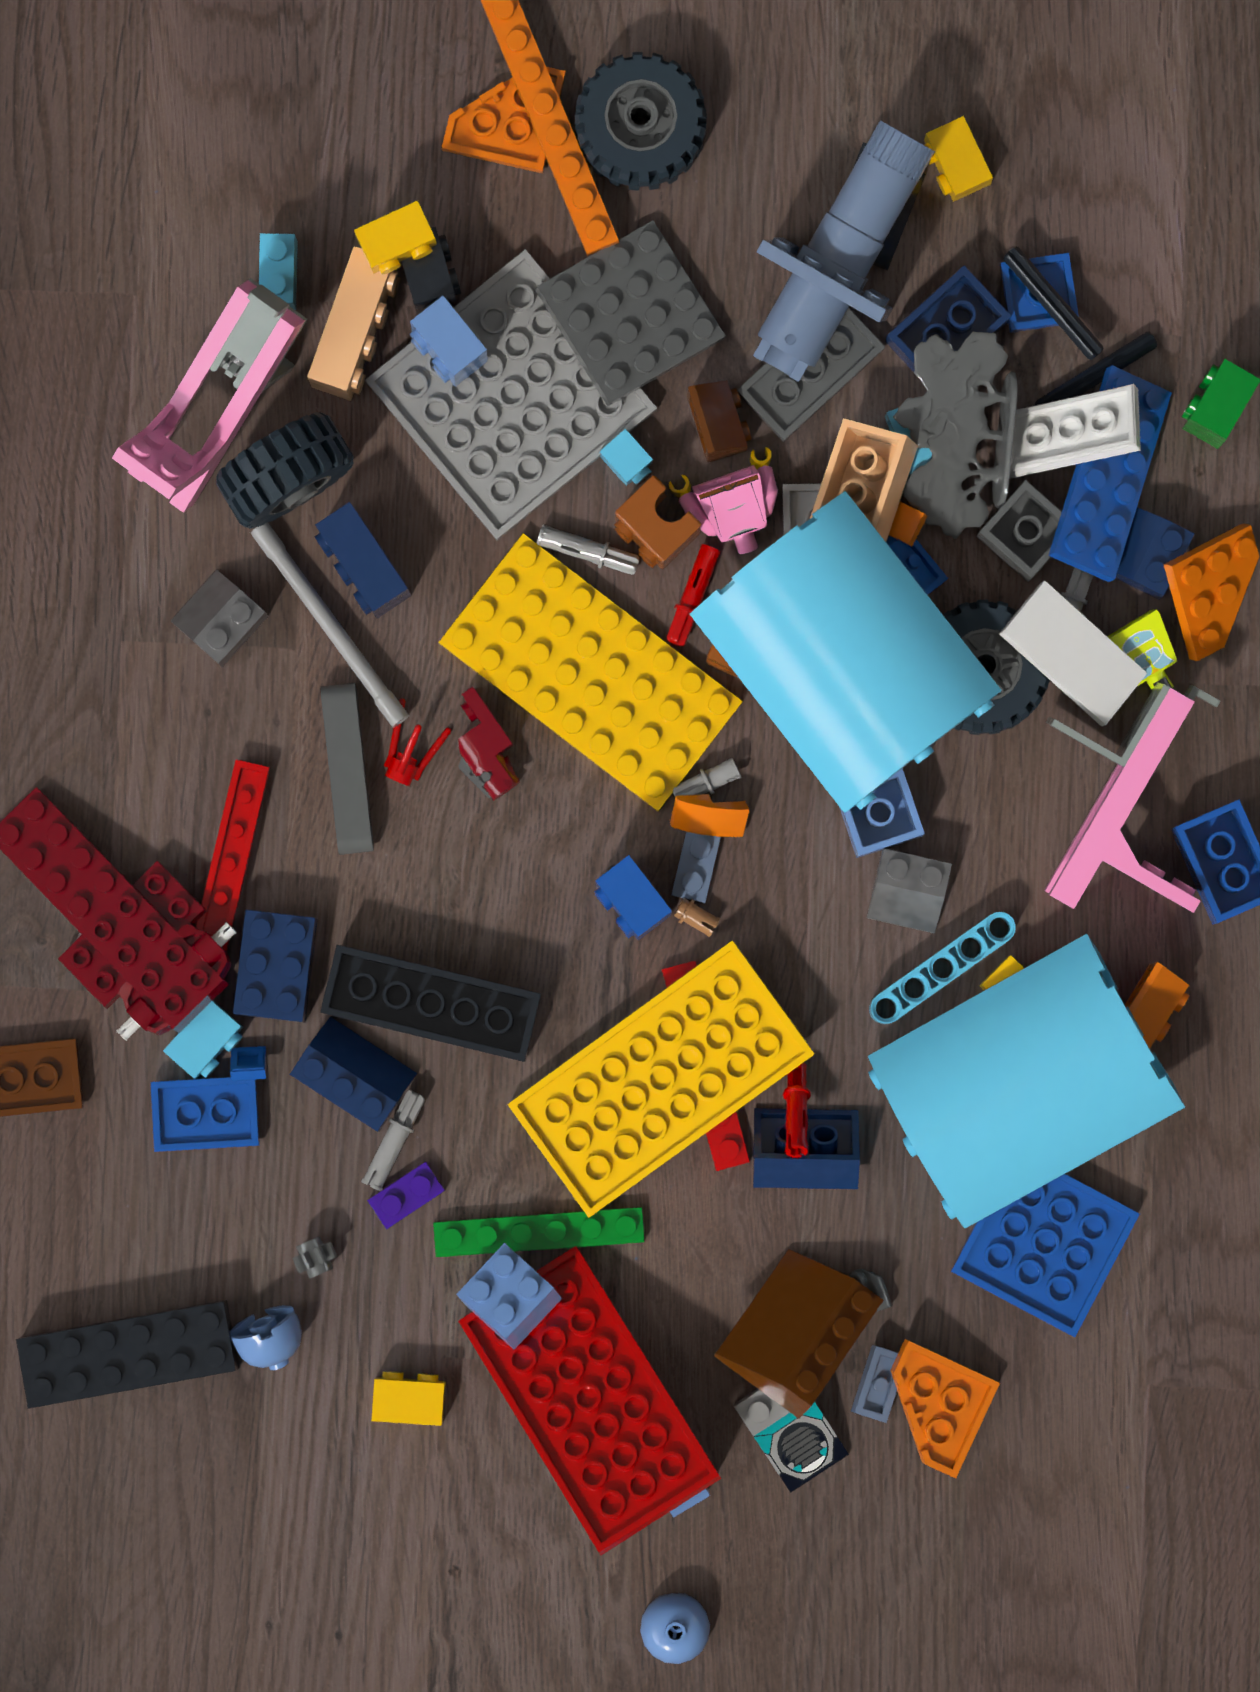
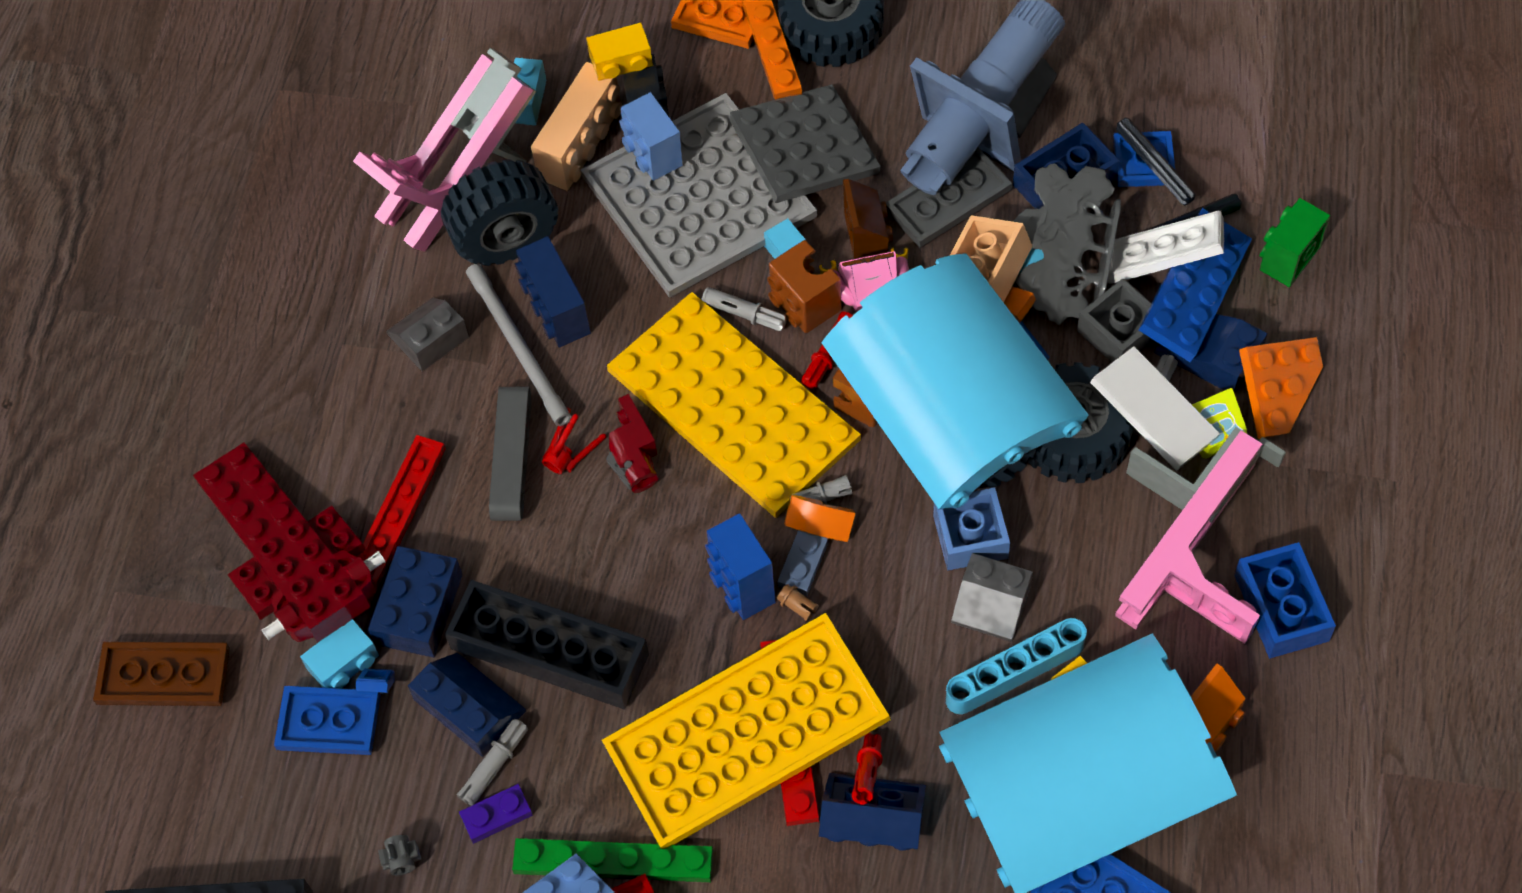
camera: 10 degrees right, 25 degrees down
(957, 159) = (1084, 62): yellow brick -> none

